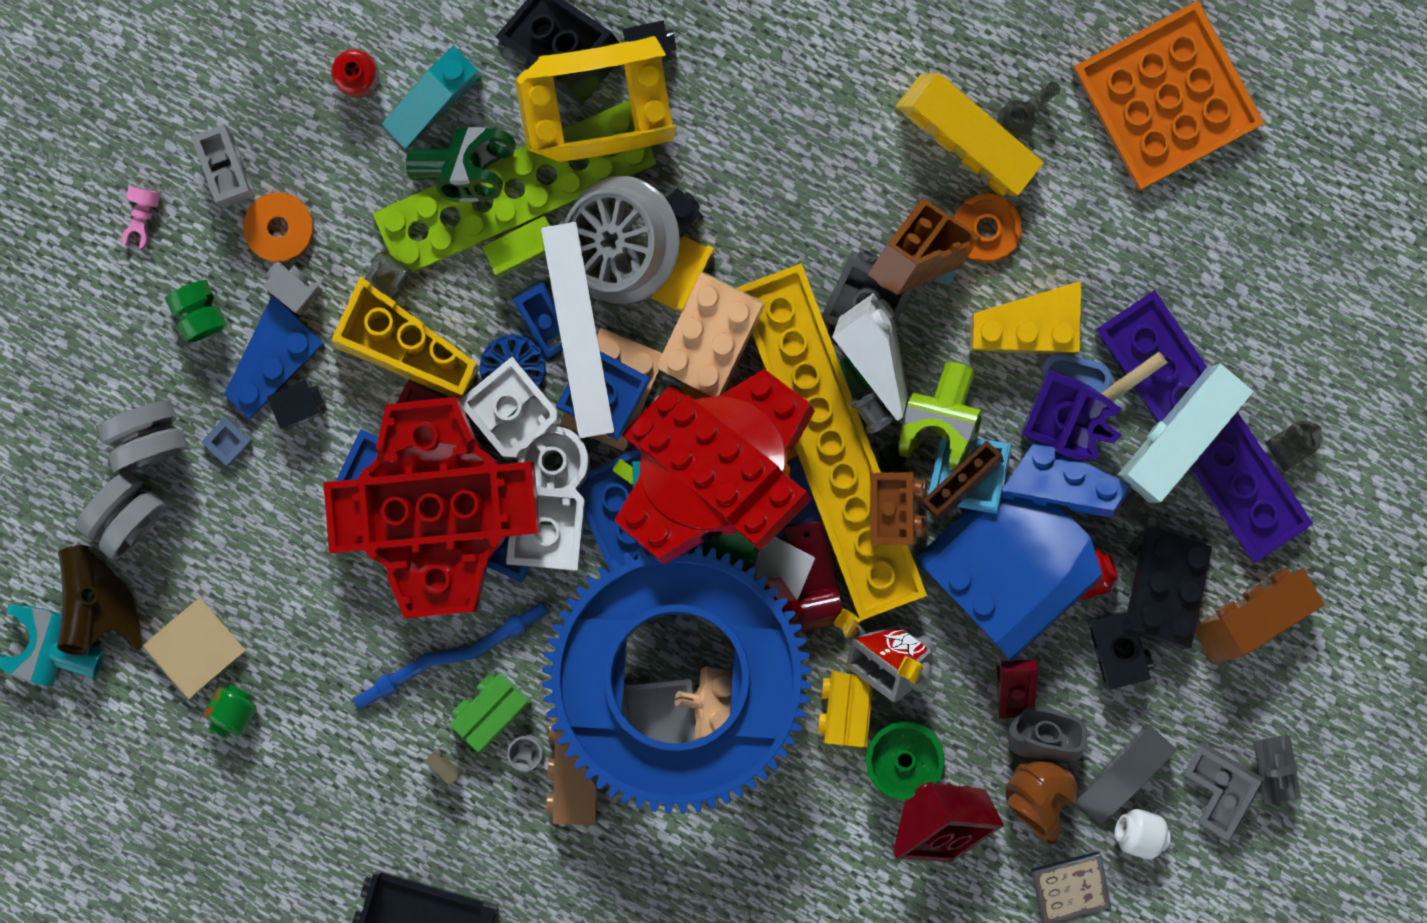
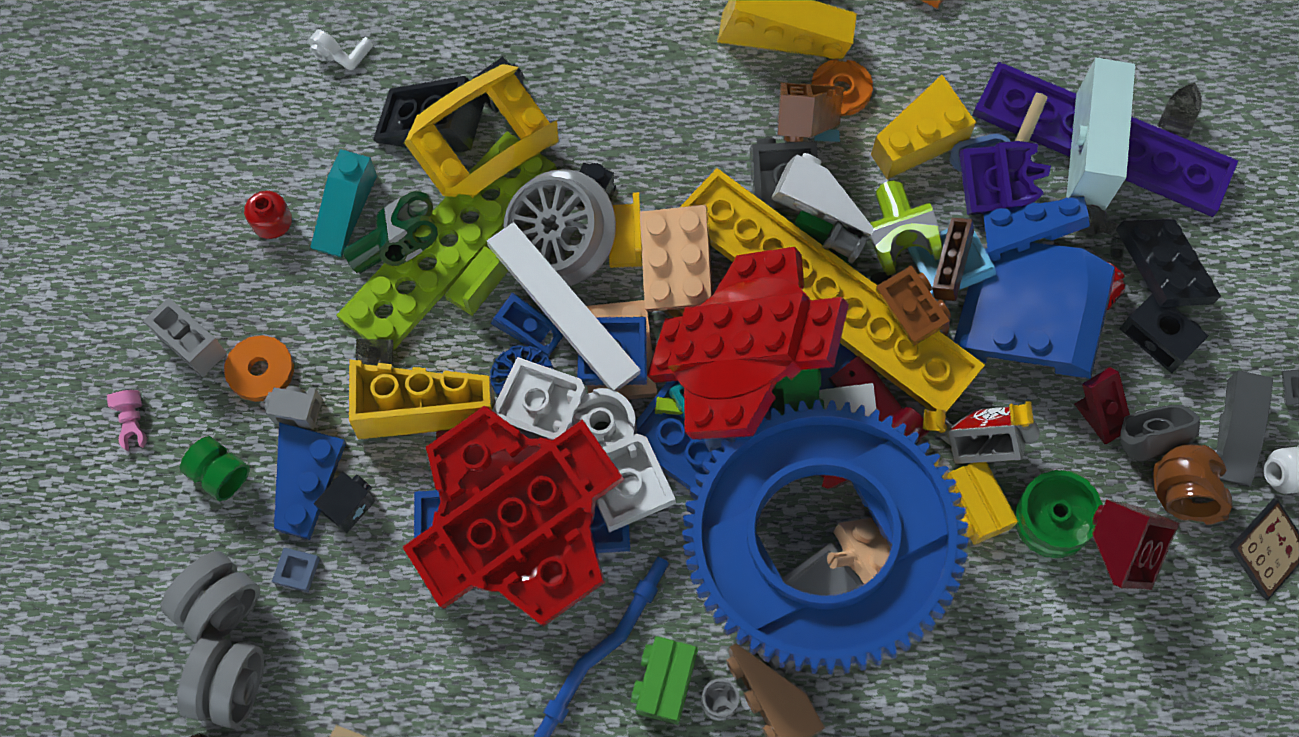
camera: 30 degrees left, 20 degrees down
(1258, 616) = (1251, 248): dark orange wedge -> none

